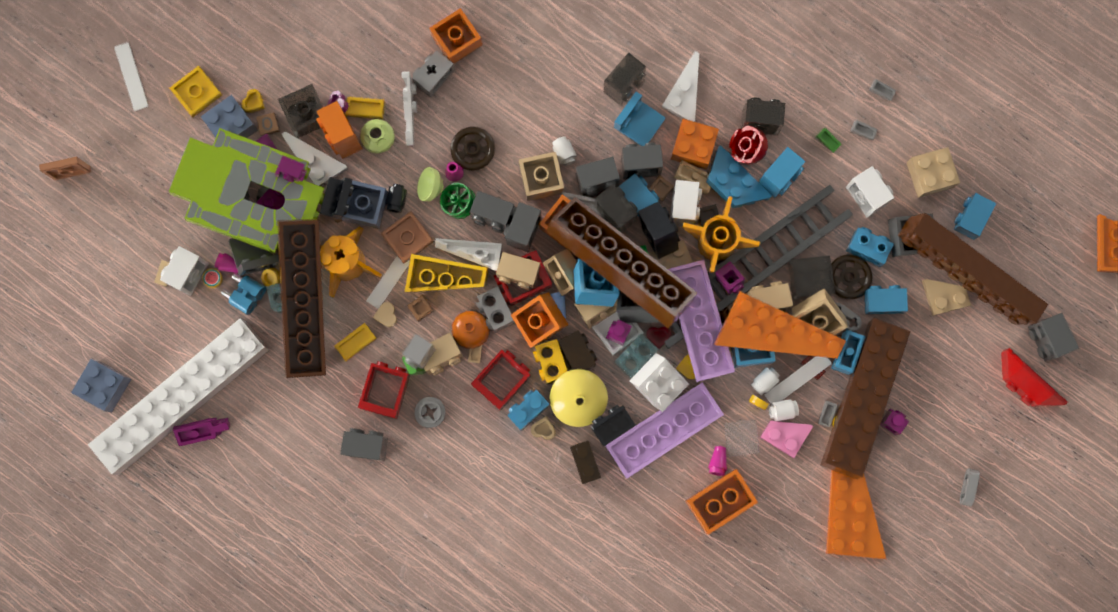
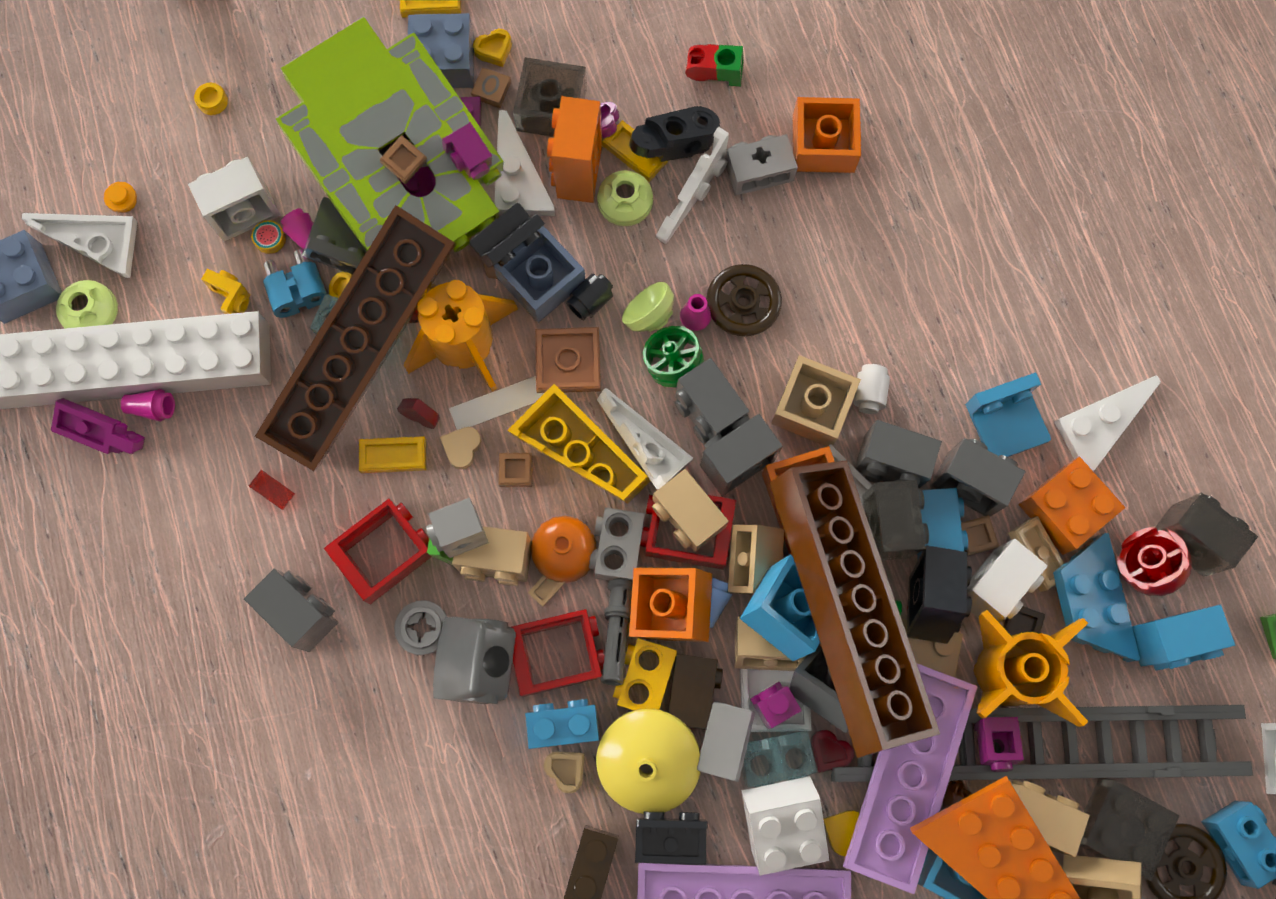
camera: 30 degrees right, 5 degrees down
(121, 309) = (120, 197): none -> light orange plate
(127, 228) = (211, 98): none -> yellow tile
(128, 337) = (98, 237): none -> white wing
(157, 375) = (100, 309): none -> yellowish green piece
(212, 316) = (226, 285): none -> yellow bracket
(218, 400) = (151, 404): none -> dark pink cone
(260, 195) = (403, 159): none -> medium nougat tile
(309, 399) = (271, 489): none -> clear red piece
(353, 312) = (419, 412): none -> dark red tile
(374, 34) = (715, 63): none -> leg
(380, 86) = (675, 134): none -> black piece
(466, 409) = (473, 660): none -> dark grey piece
(519, 342) = (618, 620): none -> dark grey pin
(607, 363) = (726, 741): none -> light grey slope
(624, 79) = (1029, 345): clear smoke brick -> none

